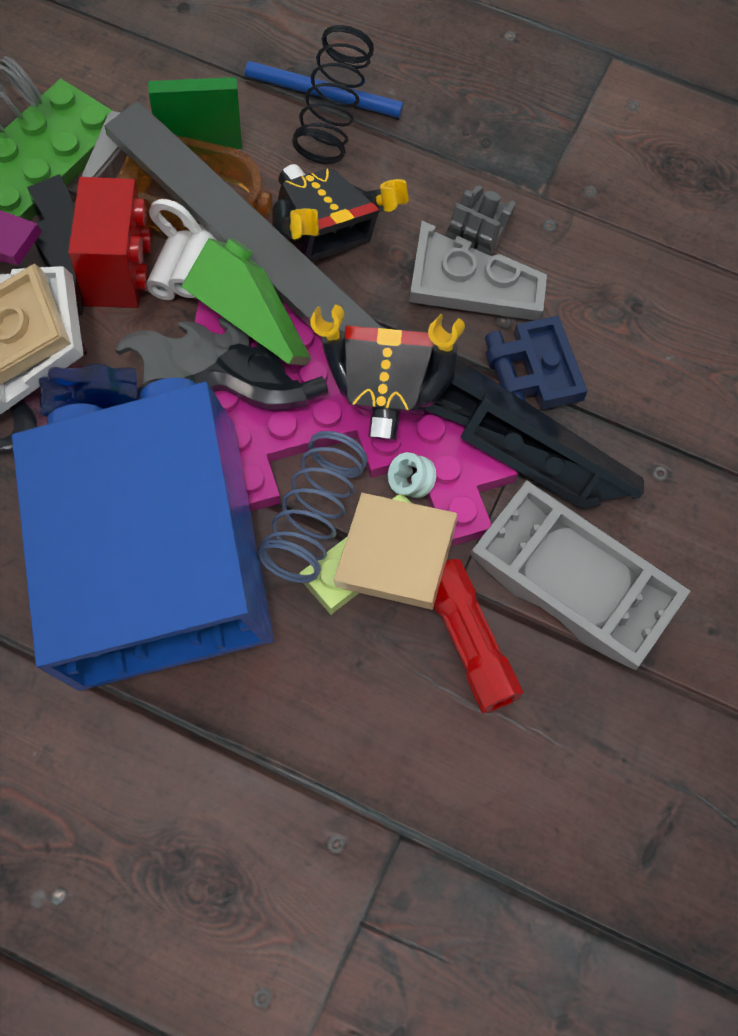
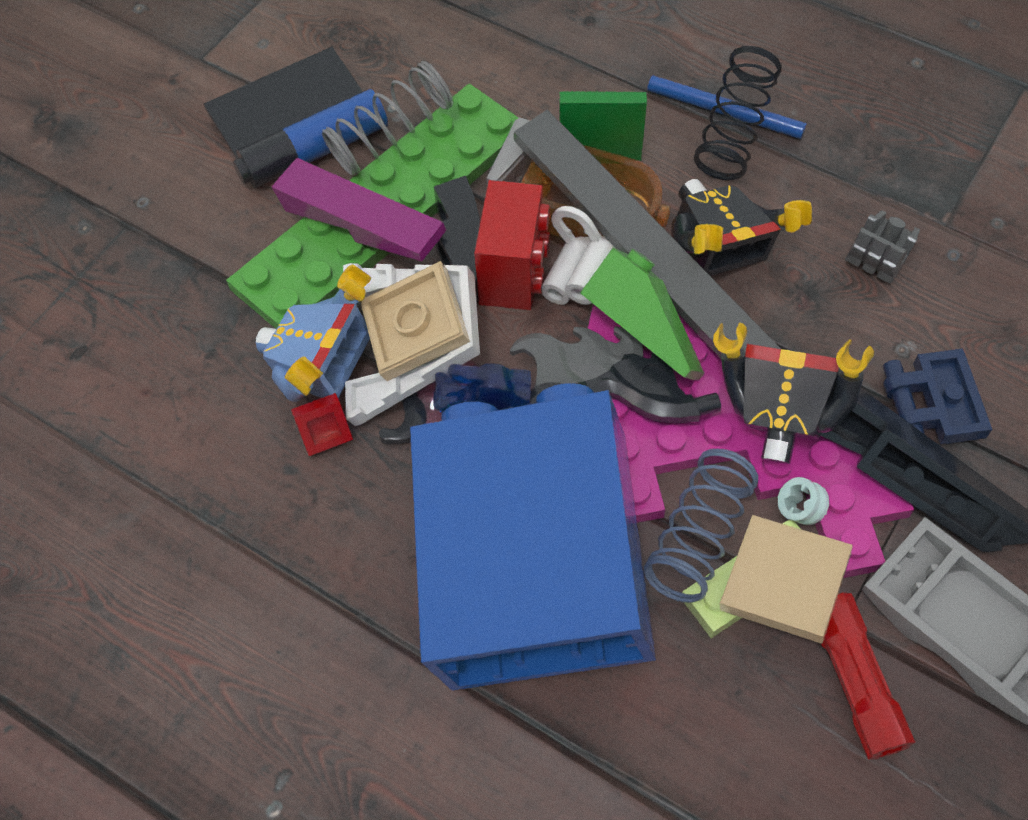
camera: 15 degrees right, 5 degrees down
(466, 279) = (864, 304): light grey wing -> none

